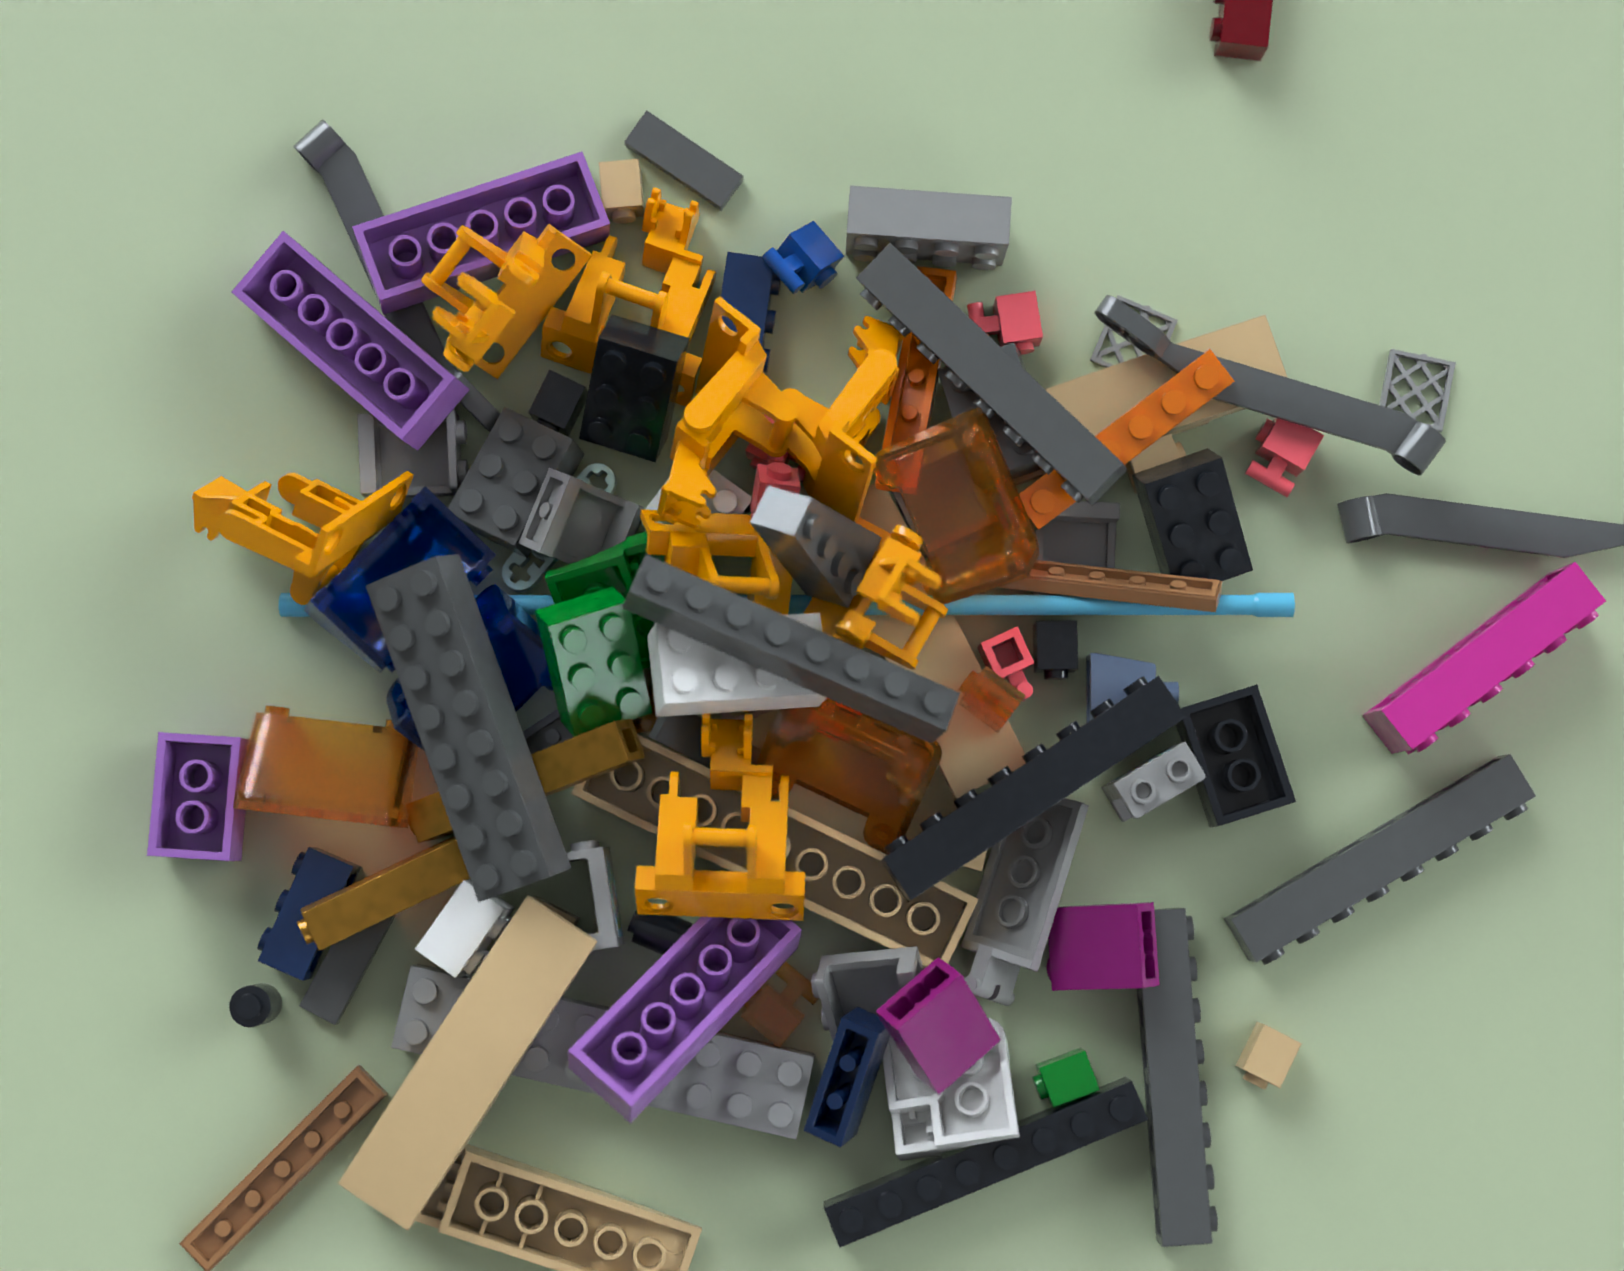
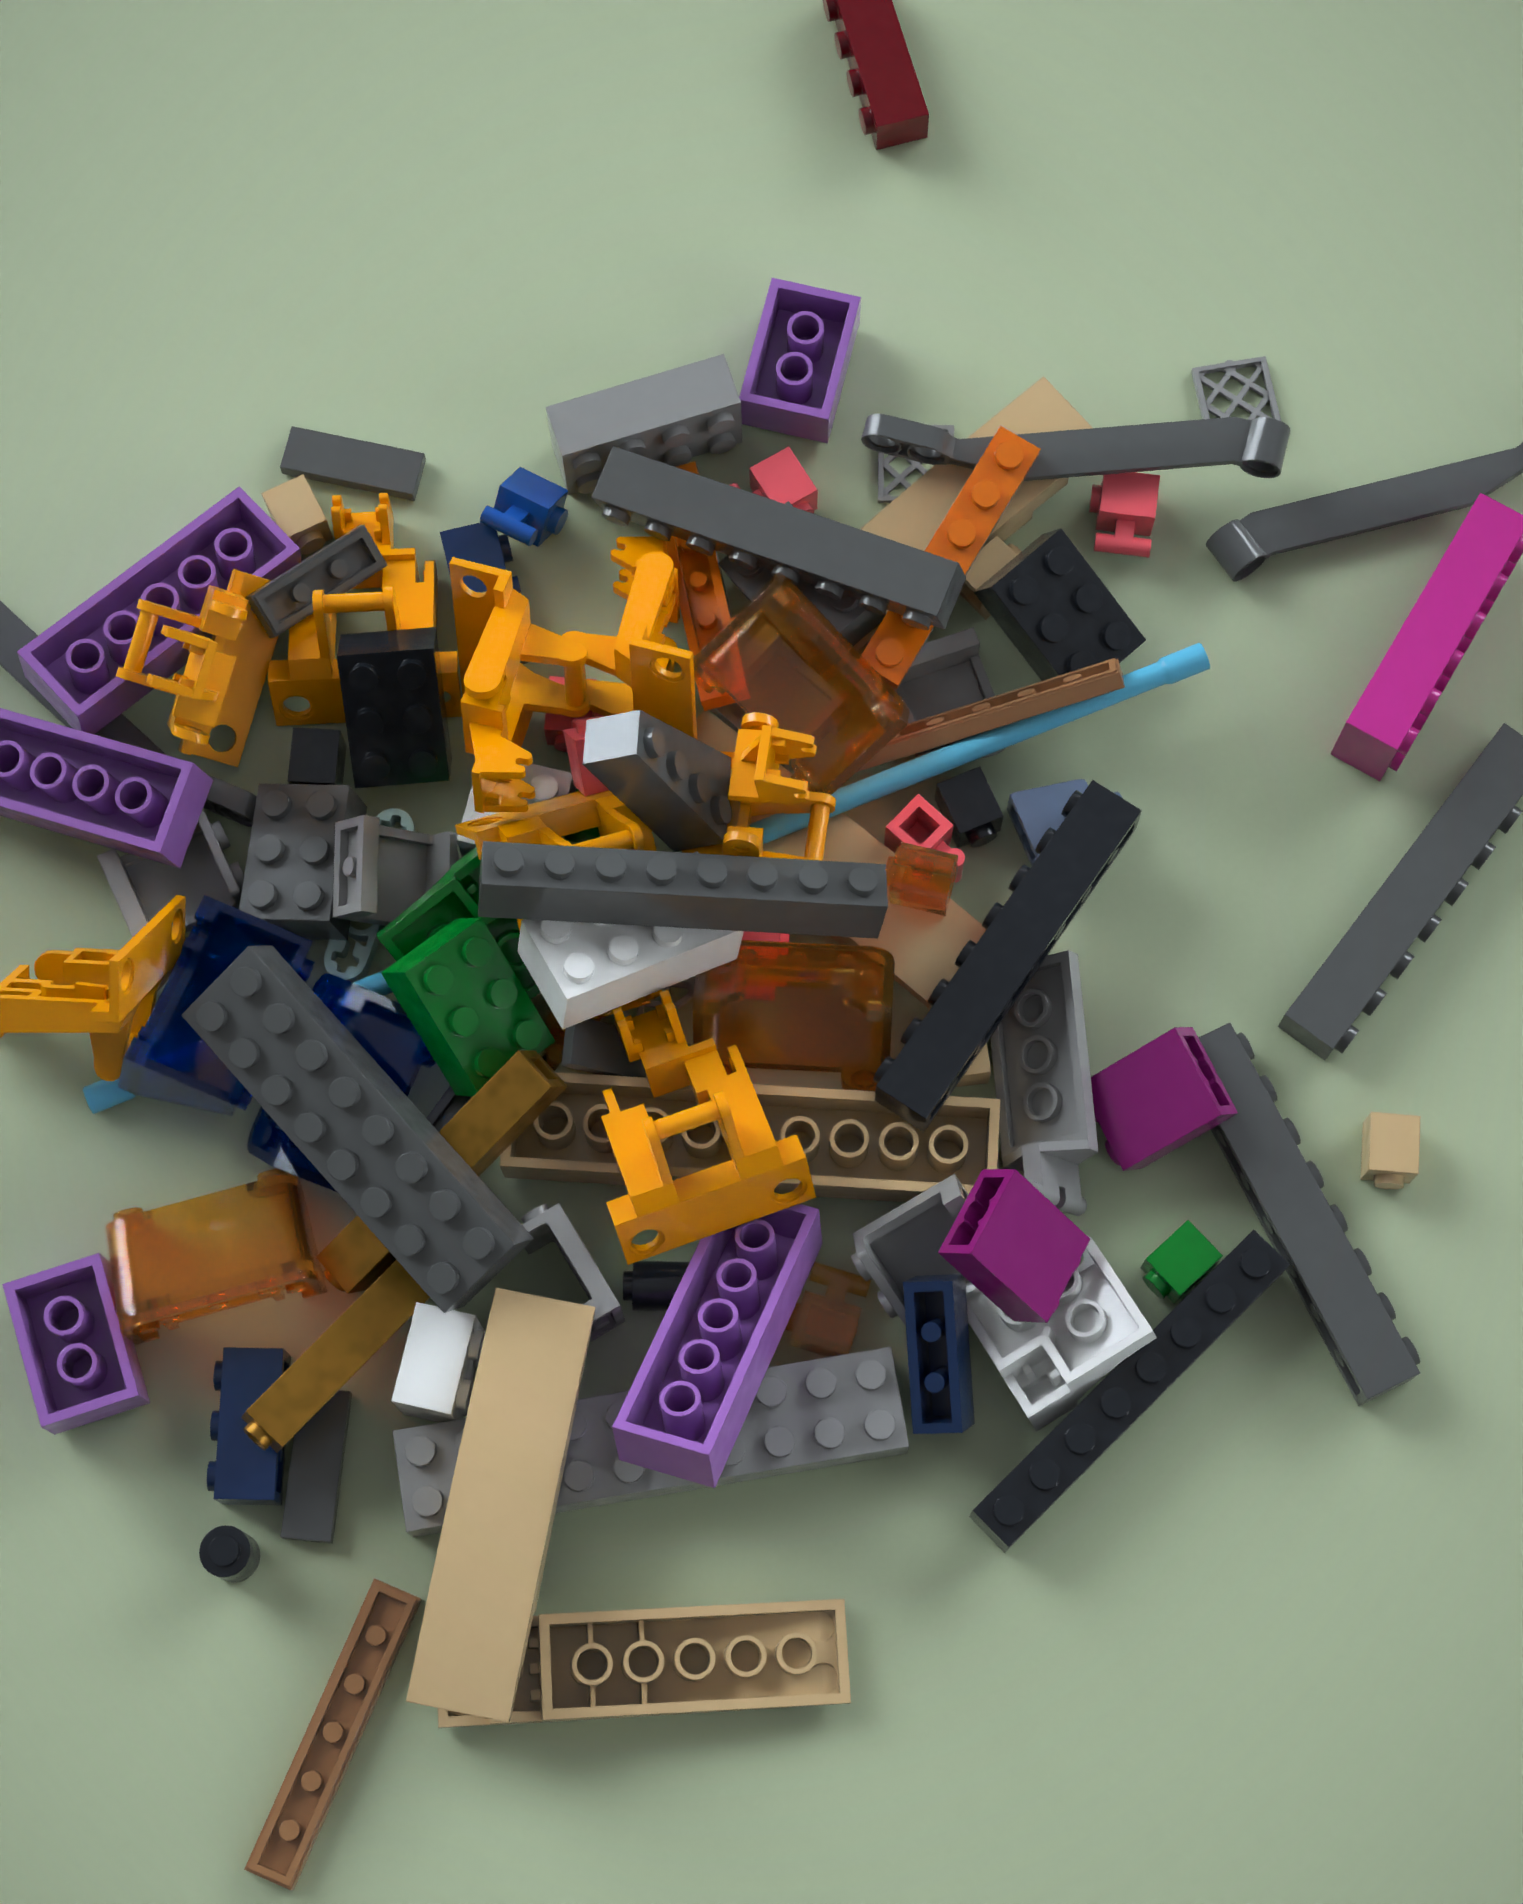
camera: 20 degrees left, 10 degrees down
(617, 254) = (331, 569): none -> dark grey tile
(1074, 218) = (799, 360): none -> medium lavender brick
(1154, 782) = (1135, 900): light grey panel -> none
(1237, 755) = (1212, 843): black brick -> none

